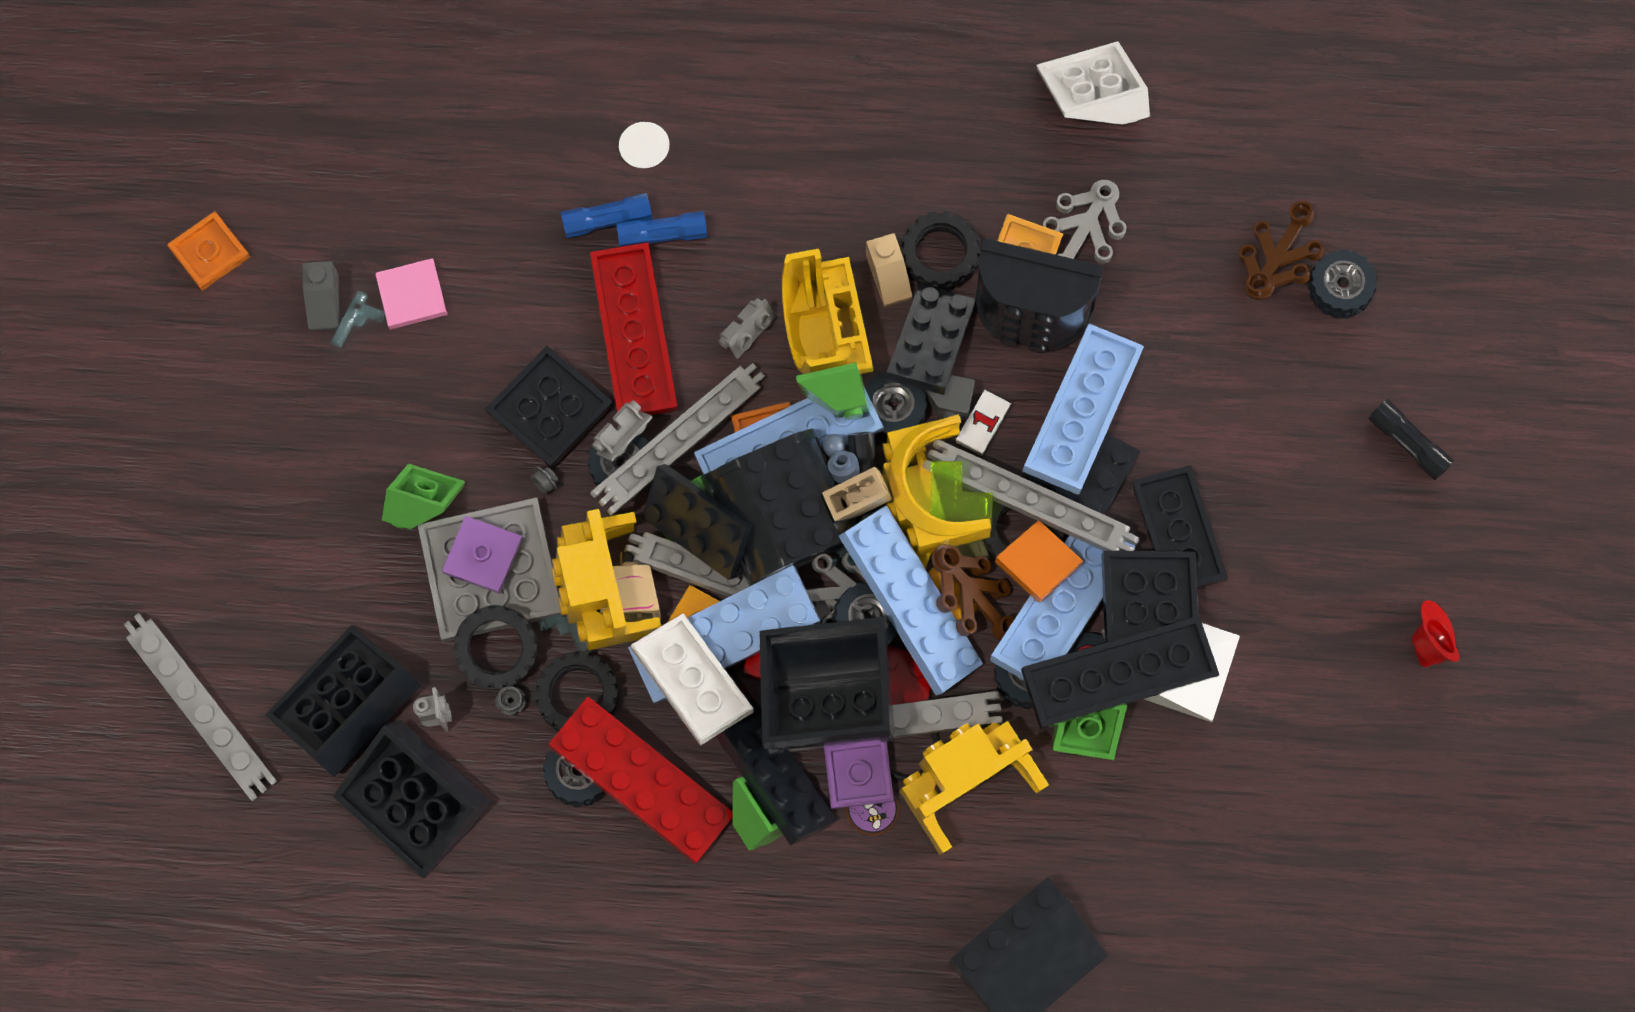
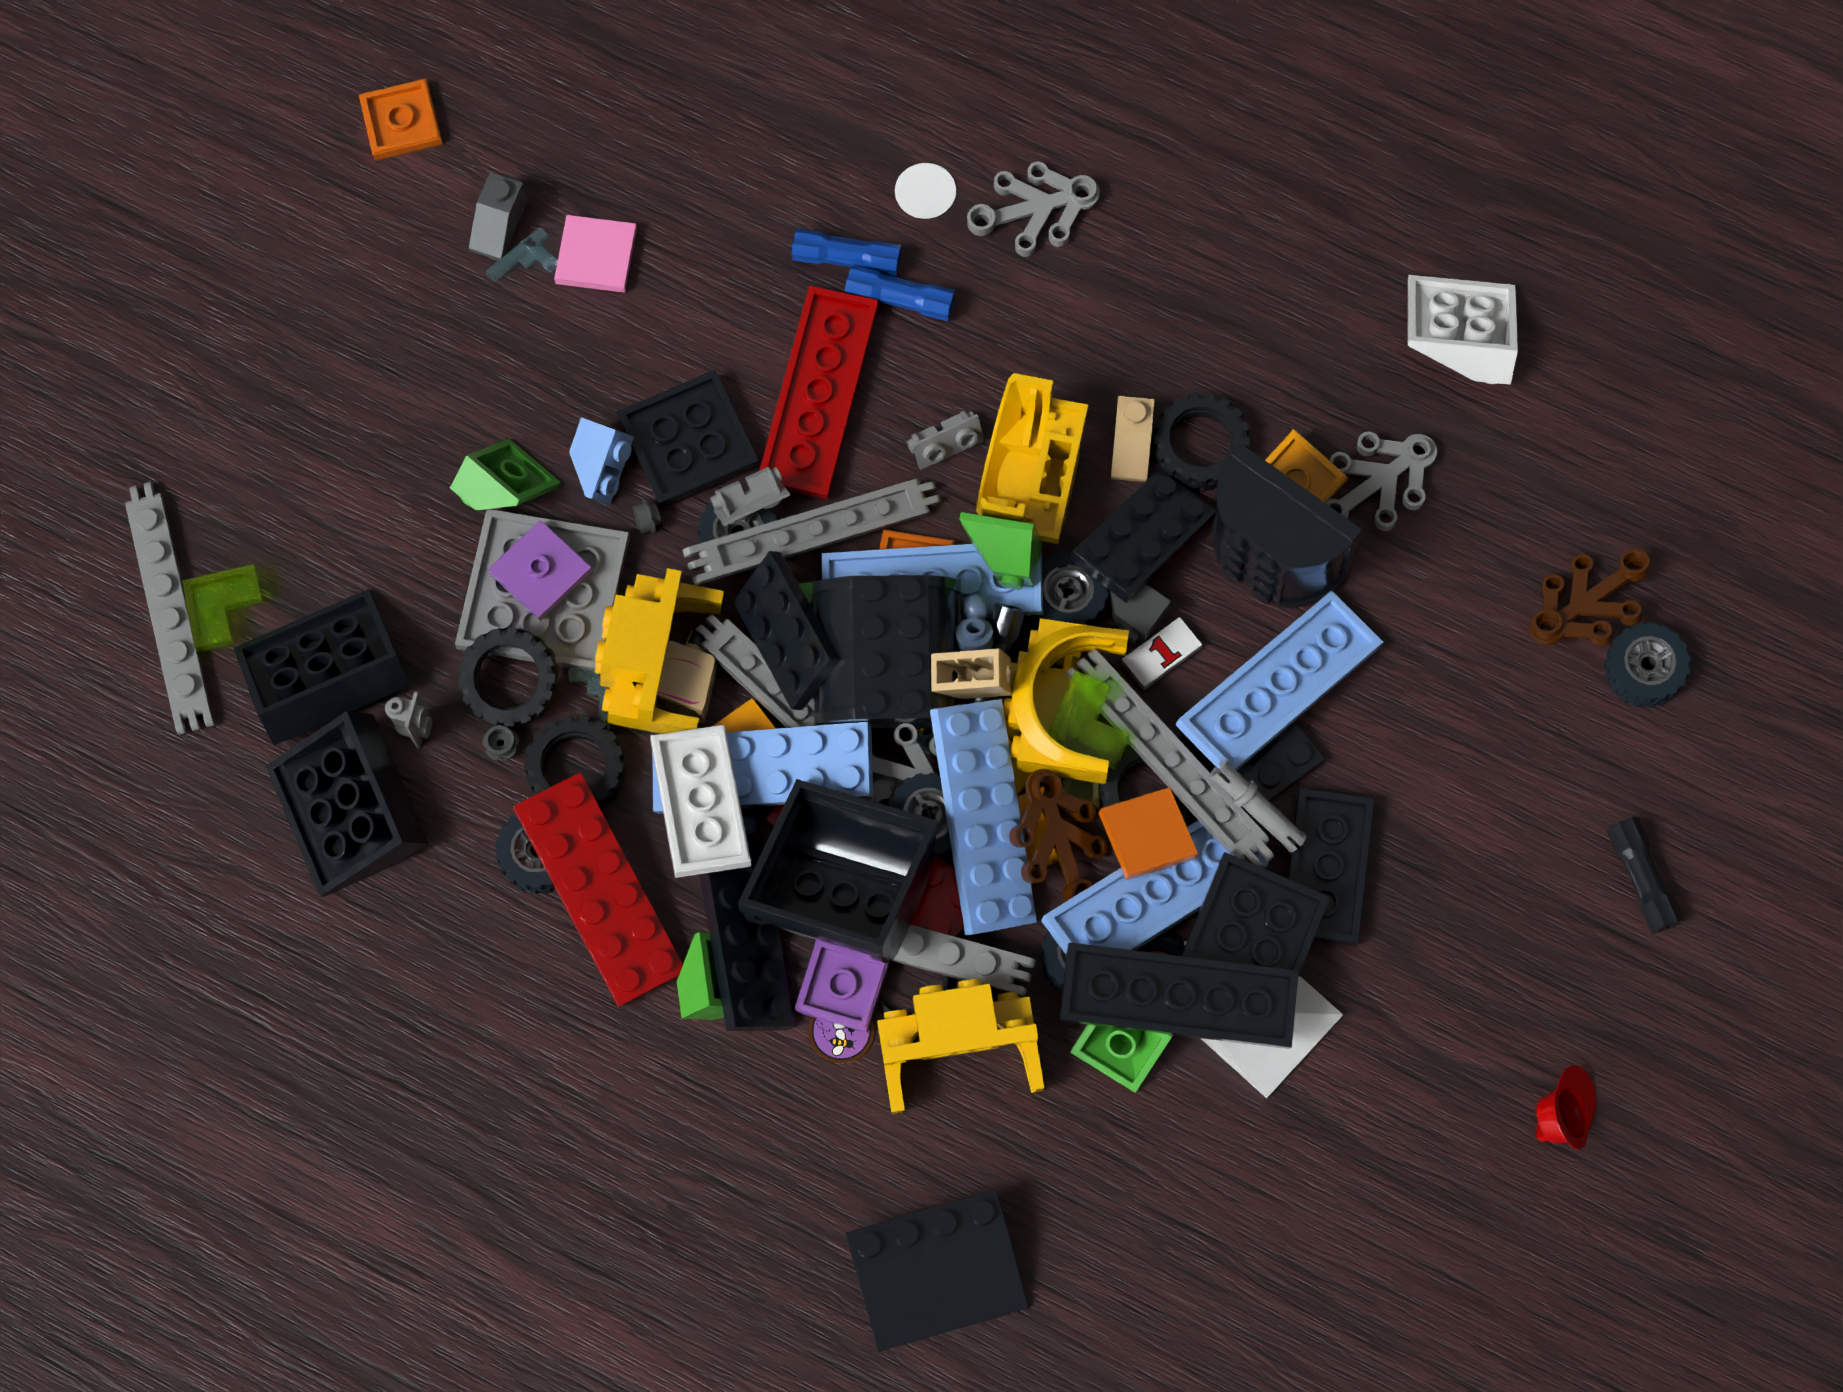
camera: 25 degrees right, 0 degrees up
(230, 684) = (210, 599): none -> clear neon green plate
(488, 449) = (599, 458): none -> light blue slope
(735, 121) = (1036, 204): none -> light grey plant
(1101, 502) = (1247, 796): none -> light grey pin

